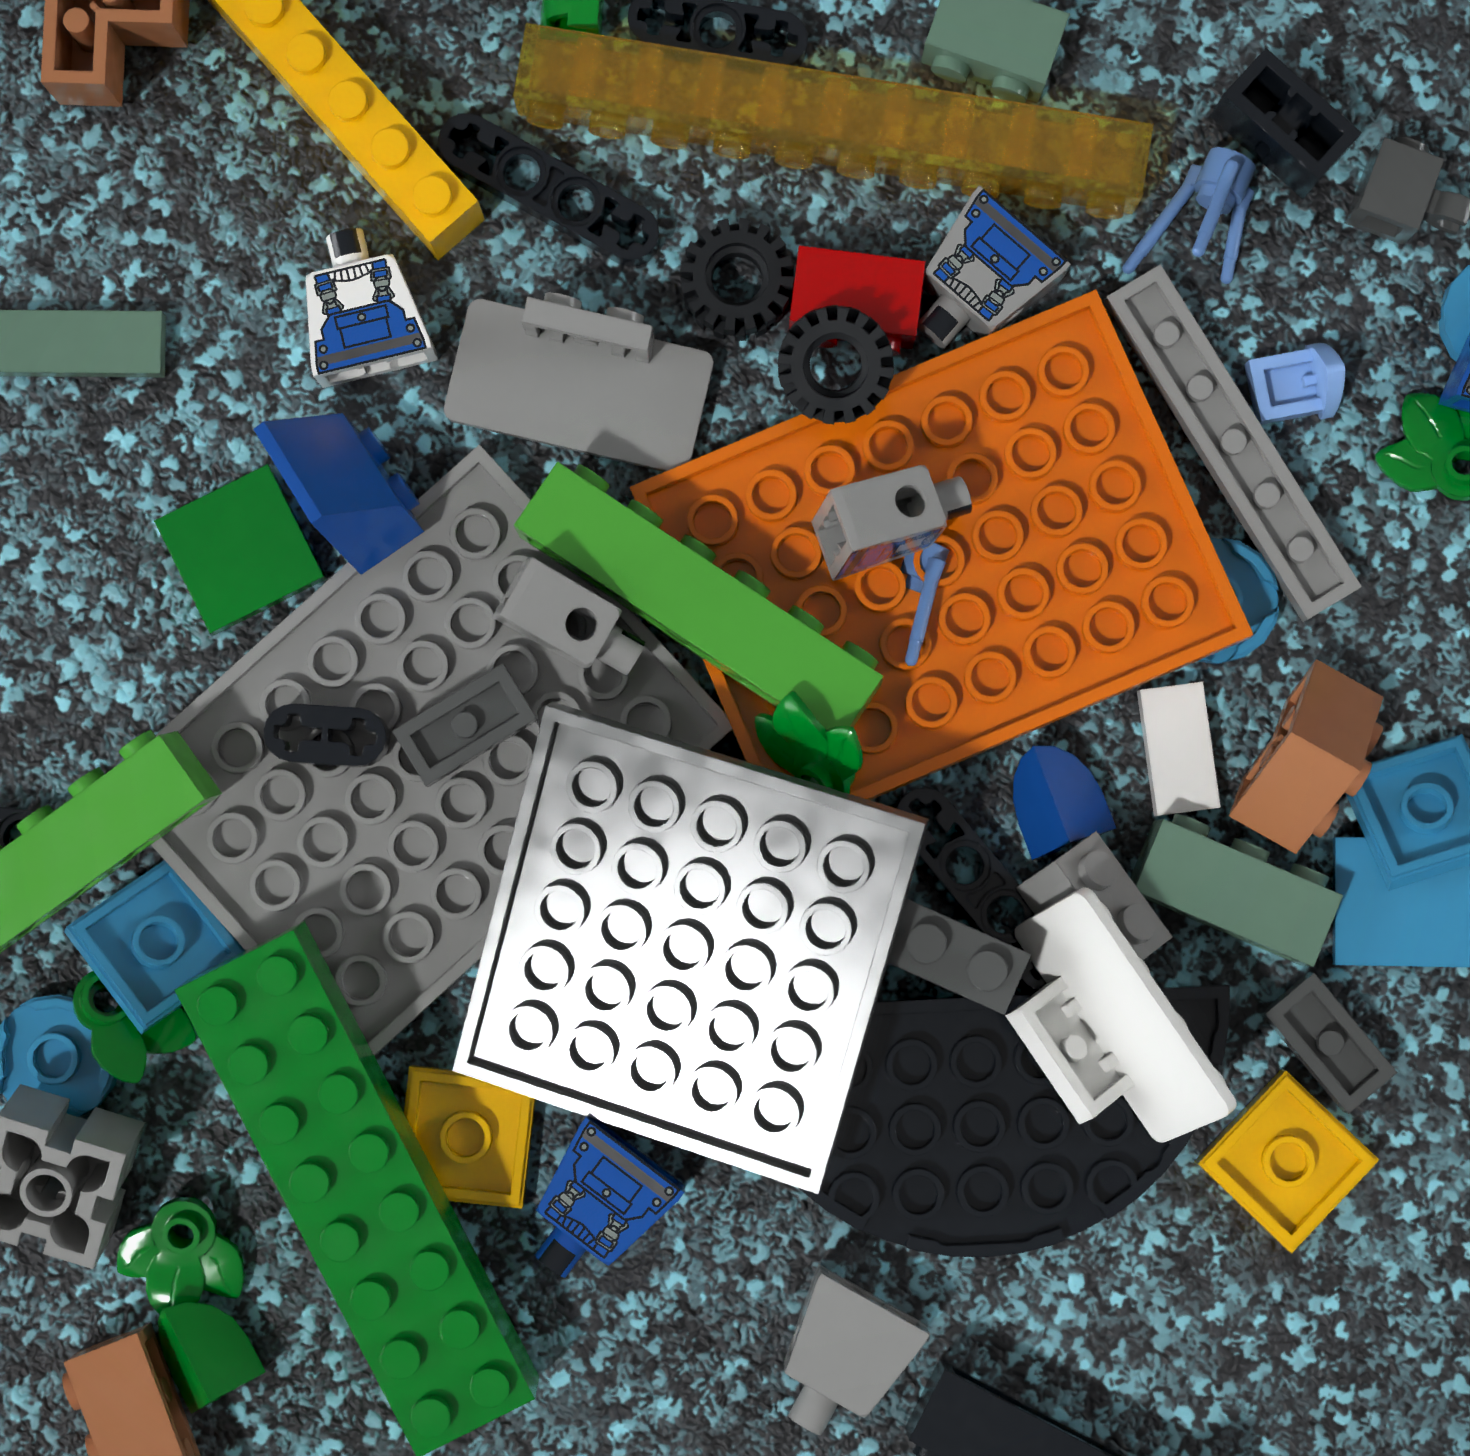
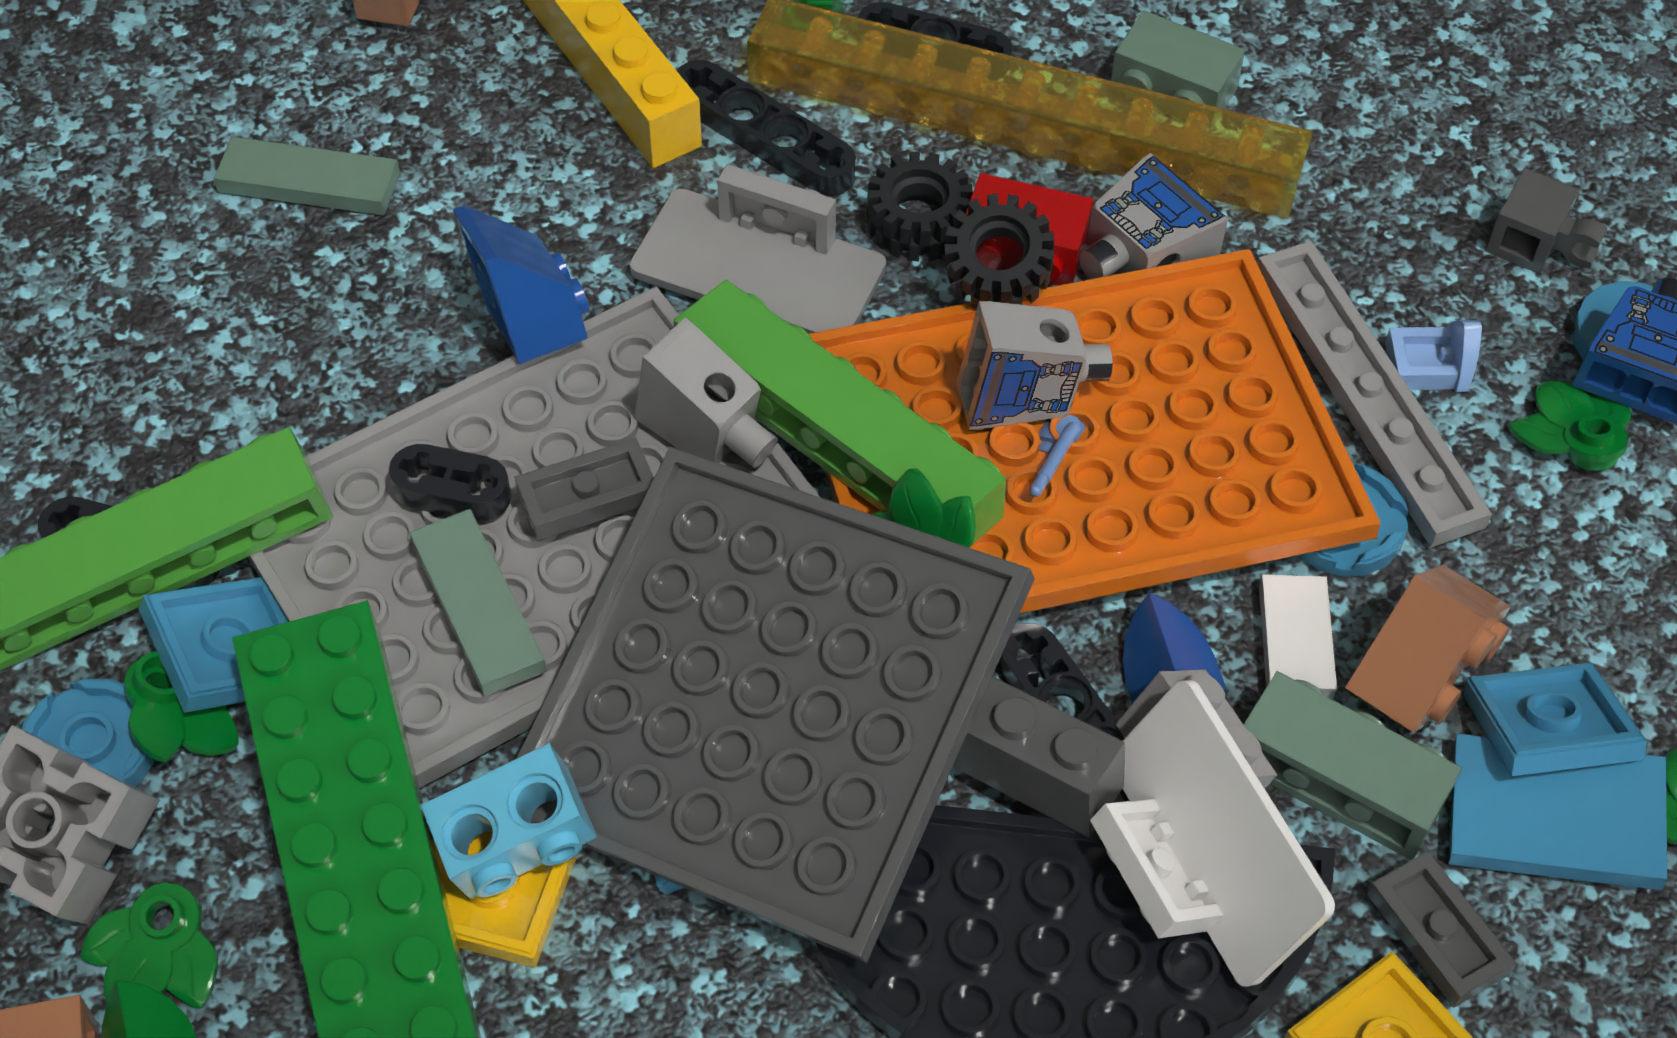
camera: 10 degrees right, 30 degrees down
(240, 550) = (411, 344): green tile -> none
(362, 315) = (575, 185): torso -> none
(386, 866) = (478, 602): none -> sand green tile
(470, 1099) = (505, 804): none -> medium azure brick
(602, 1198) = (623, 955): torso -> none
(1220, 187) = (1367, 200): medium blue plant -> none
(1284, 123) = (1433, 152): black brick -> none

